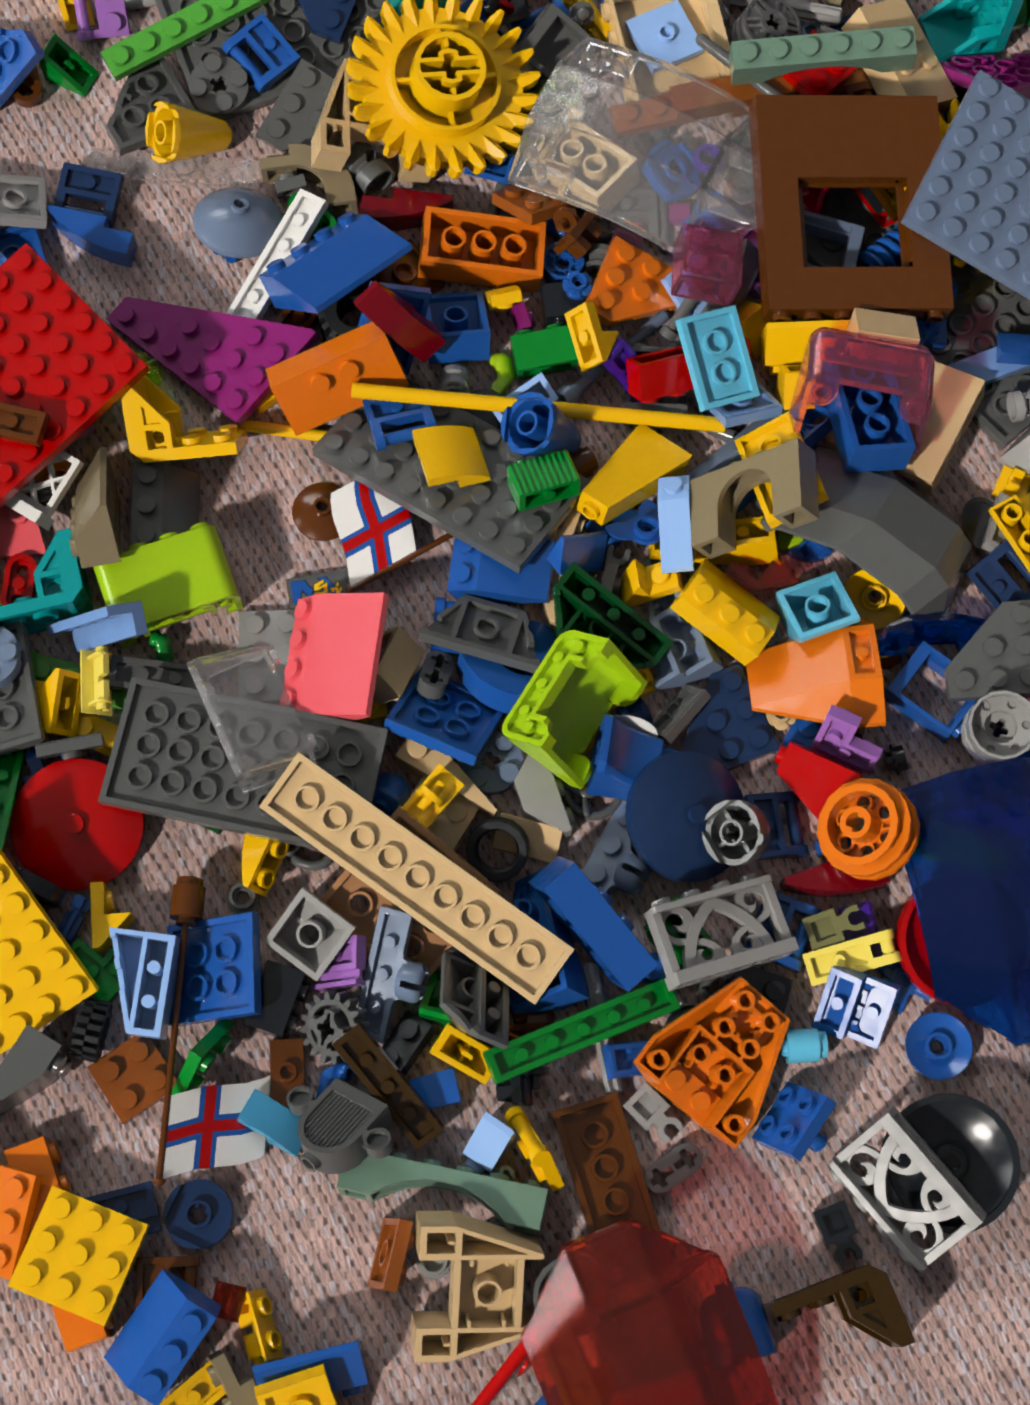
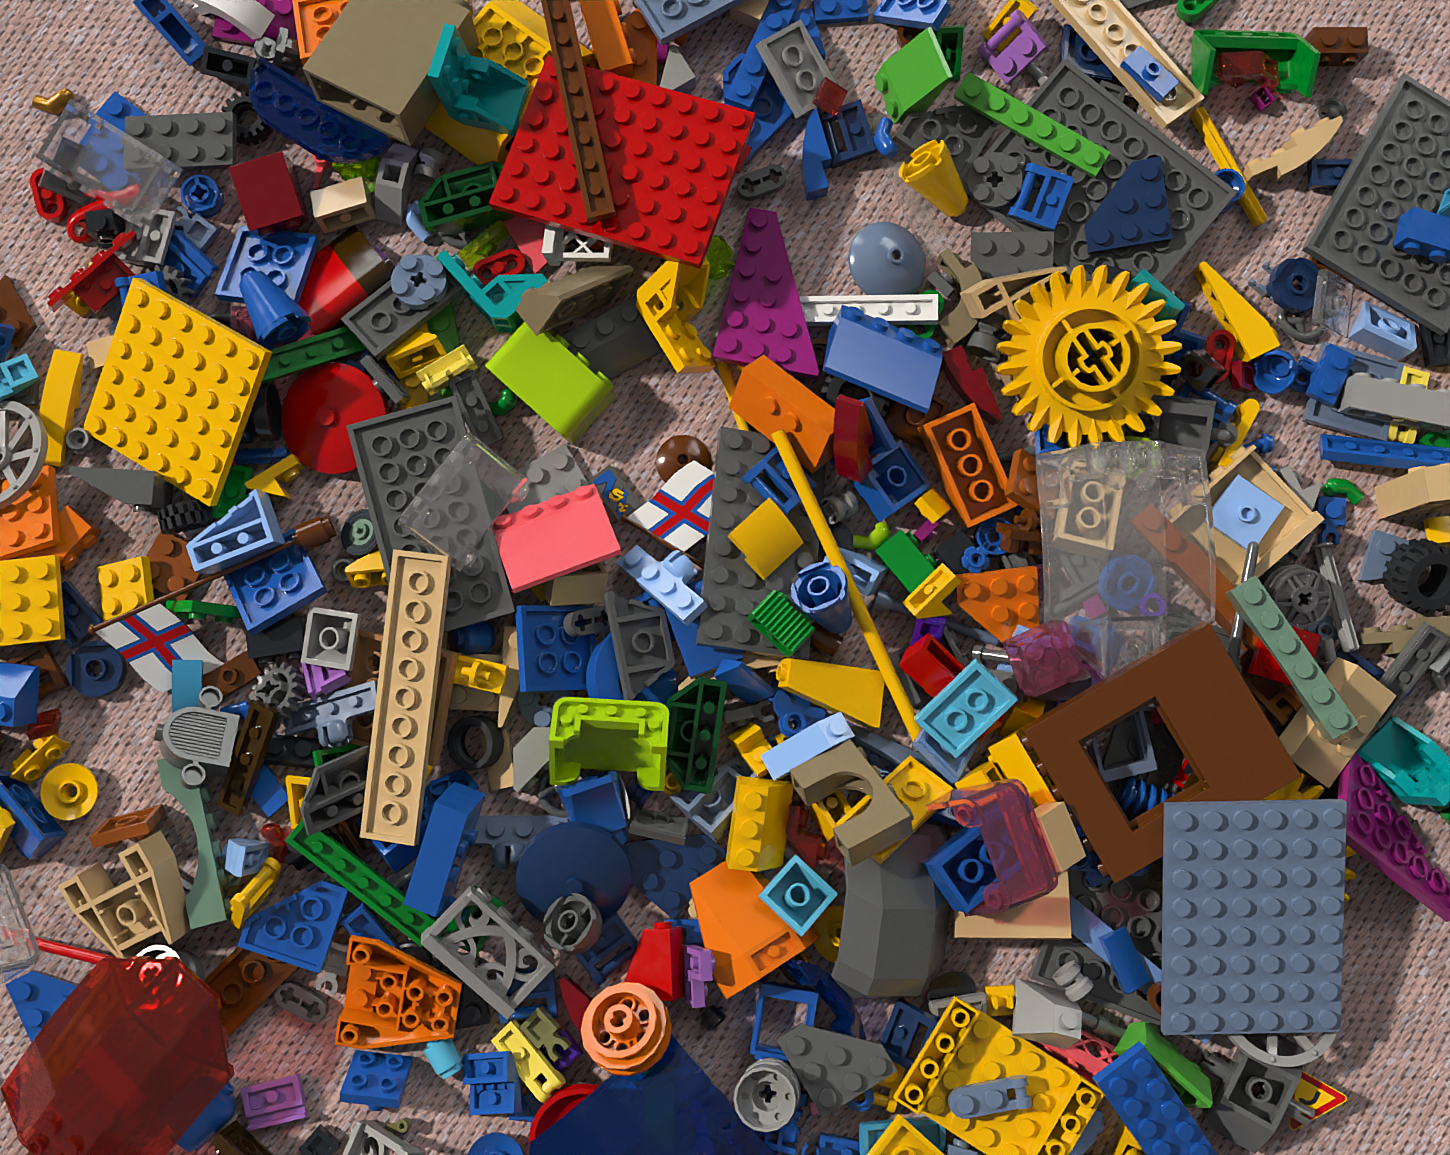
camera: 60 degrees right, 10 degrees up
(44, 186) = (829, 96): none -> clear red tile
(75, 99) = (913, 77): none -> bright green slope
(96, 293) = (763, 188): none -> dark grey beam
(103, 626) = (484, 350): medium blue fence -> none
(118, 162) = (883, 140): none -> blue arm
(128, 1137) = (124, 586): none -> yellow plate
(216, 855) = (358, 534): none -> black wheel
(298, 1304) = (56, 794): none -> yellow dish
(438, 576) = (666, 581): none -> light blue plate
(479, 1106) = (277, 837): none -> clear red arm
(593, 1123) = (298, 927): none -> blue plate
(764, 1249) = (274, 1101): none -> medium lavender plate
(855, 1123) = (401, 1126): none -> olive piece

